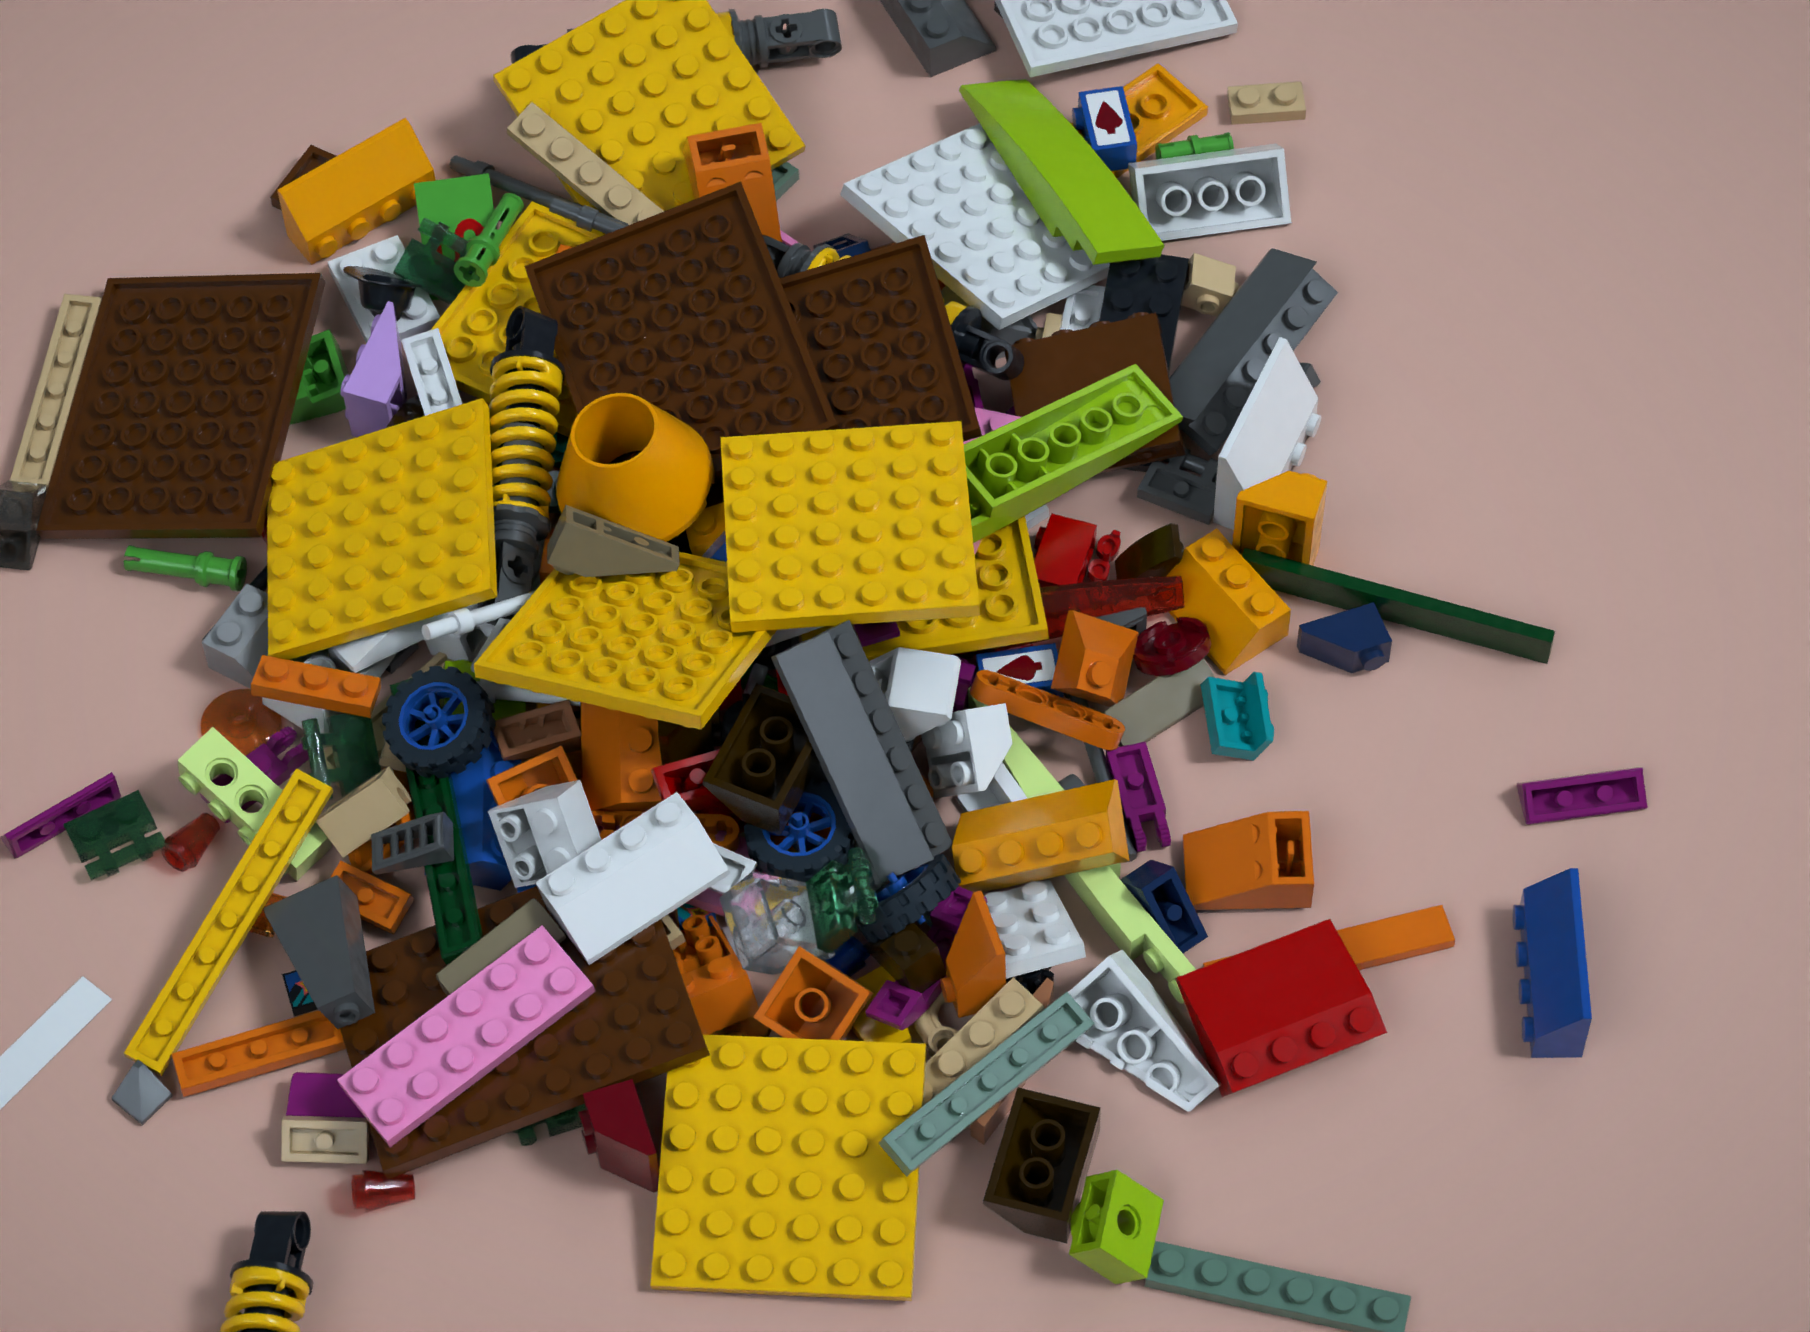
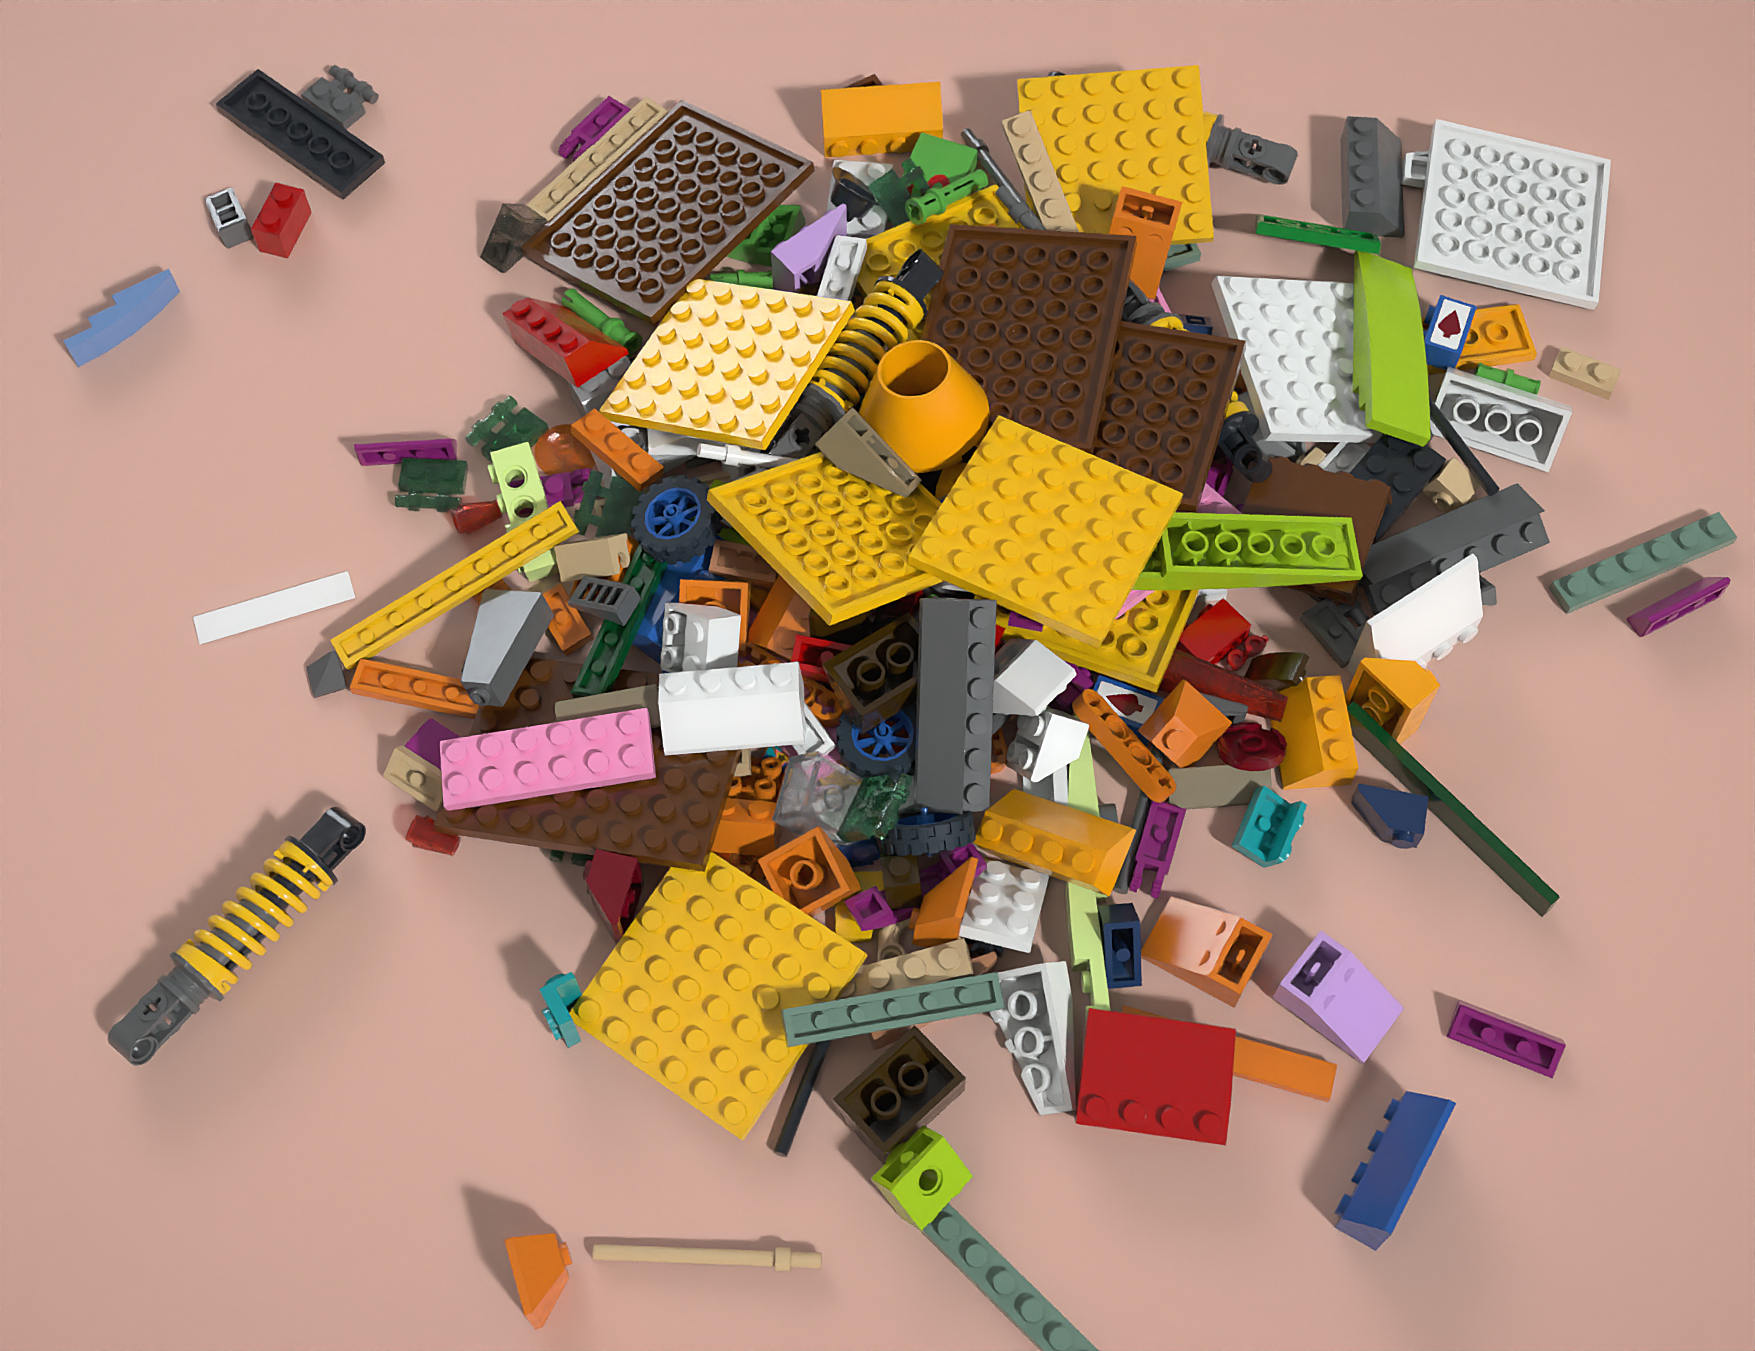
camera: 30 degrees right, 5 degrees up
(27, 357) = (593, 127): none -> magenta hinge
(164, 606) = (562, 339): none -> red slope
(175, 733) = (518, 429): none -> clear green plate
(326, 436) = (751, 279): none -> bright green pin
(645, 1277) = (559, 995): none -> teal bracket
(908, 89) = (1317, 234): none -> green tile
(942, 1227) = (801, 1098): none -> black bar
(1201, 243) = (1462, 450): none -> black bar
(1404, 840) = (1339, 997): none -> lavender slope
(1437, 268) = (1642, 562): none -> sand green plate
(1495, 292) = (1678, 605): none -> magenta slope

